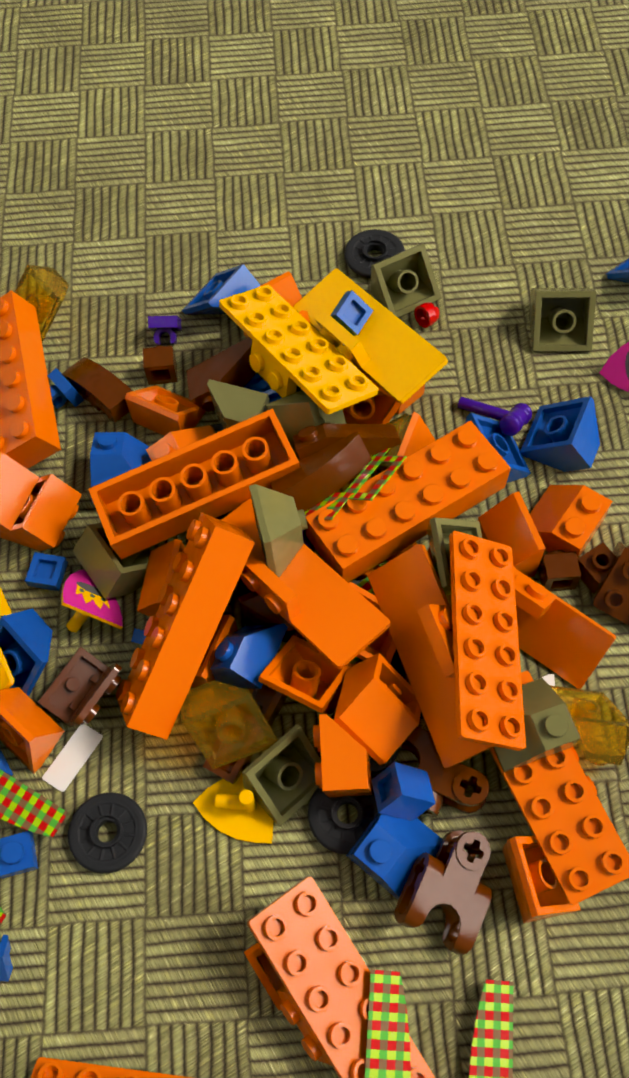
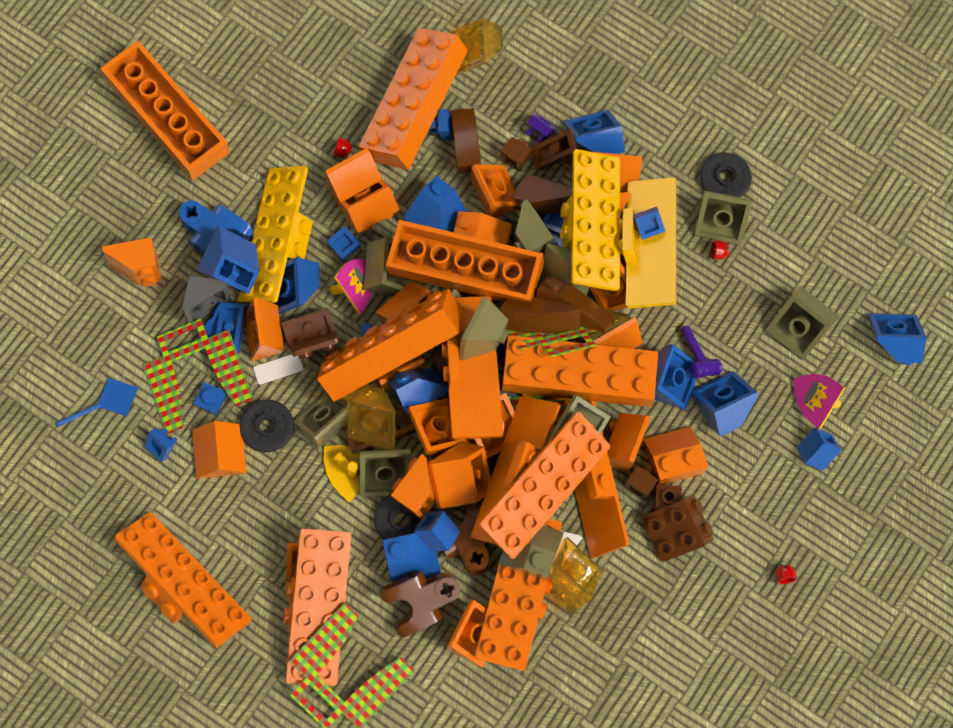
camera: 30 degrees right, 10 degrees up
(70, 908) = (218, 450): none -> orange slope
(168, 771) = (323, 419): none -> olive slope
(198, 329) = (554, 150): none -> reddish brown slope

